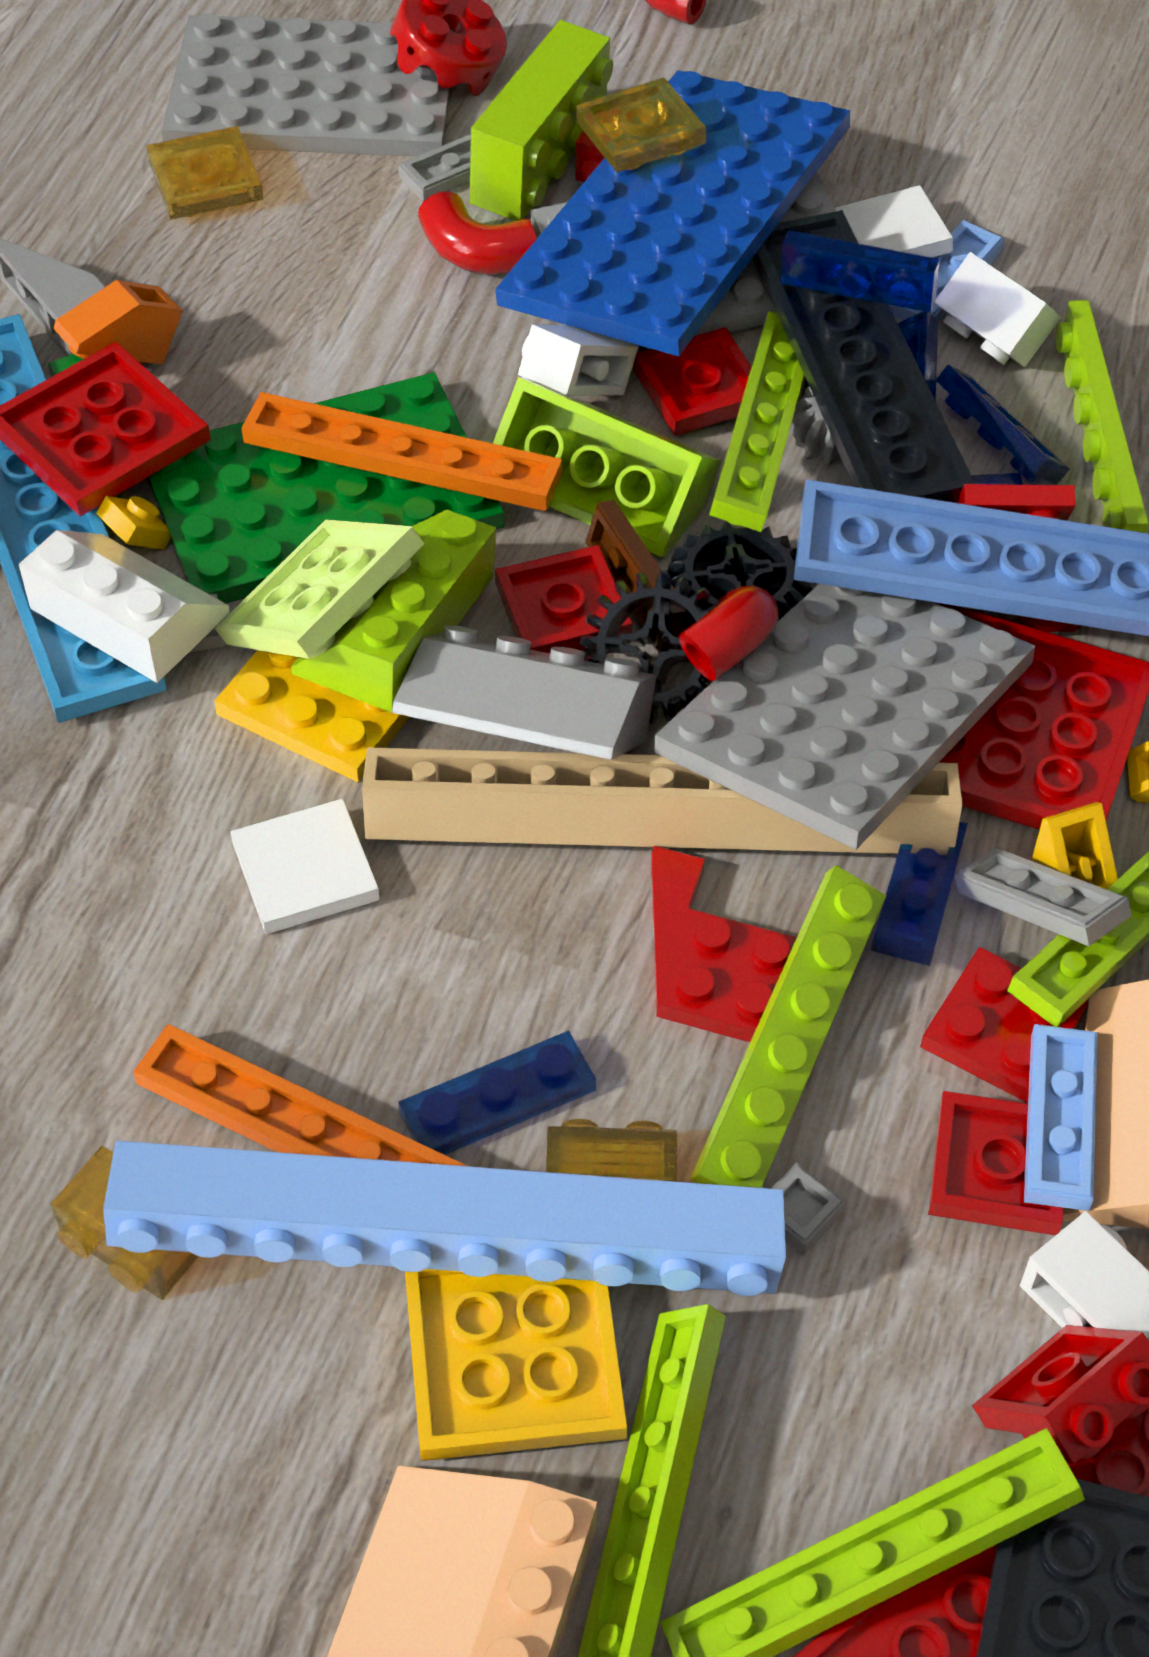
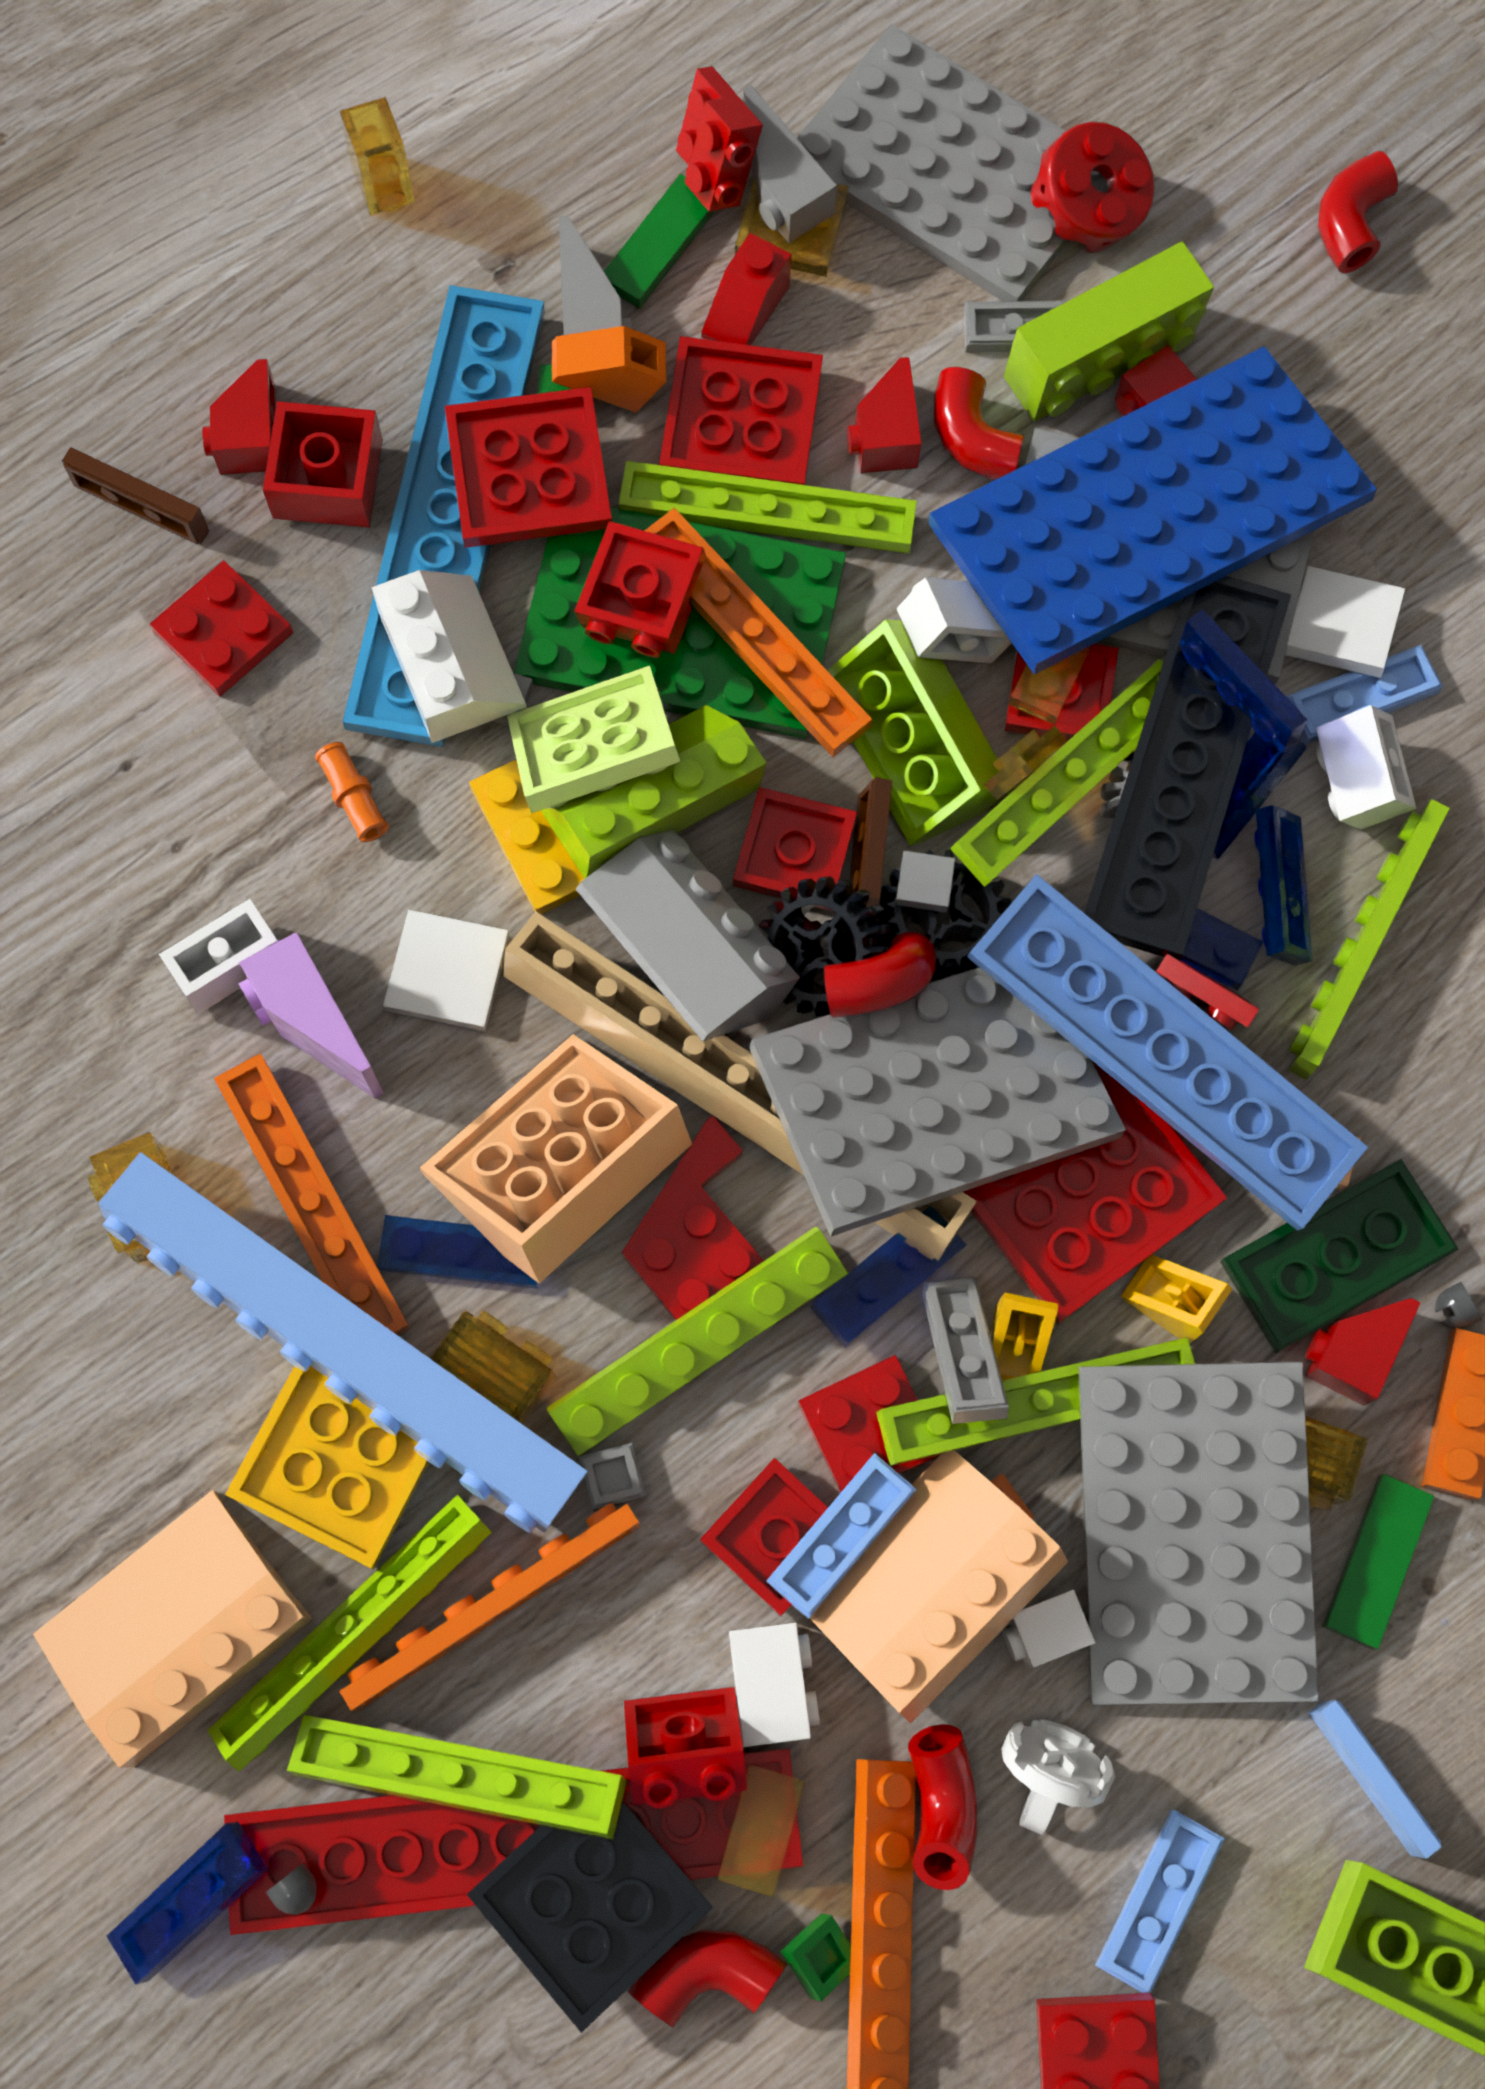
camera: 30 degrees right, 20 degrees up
(71, 955) = (209, 959): none -> white brick
(96, 228) = (657, 243): none -> green tile
(101, 131) = (717, 141): none -> red plate
(102, 765) = (351, 792): none -> orange pin
(135, 521) = (509, 572): yellow plate -> none
(175, 129) = (789, 182): none -> light grey slope
(204, 954) = (291, 994): none -> lavender slope
(205, 233) = (748, 292): none -> red slope
(264, 319) = (741, 410): none -> red plate
(277, 460) = (639, 589): none -> red plate
(346, 367) = (770, 506): none -> lime plate
(402, 267) = (887, 424): none -> red slope
(537, 949) = (558, 1156): none -> light nougat slope
(640, 125) = (1168, 407): clear yellow plate -> none
(689, 377) = (1048, 690): none -> clear yellow plate
(707, 552) = (925, 881): none -> light grey tile
(716, 428) = (1023, 760): none -> clear yellow plate
(762, 1415) = (470, 1617): none -> orange plate

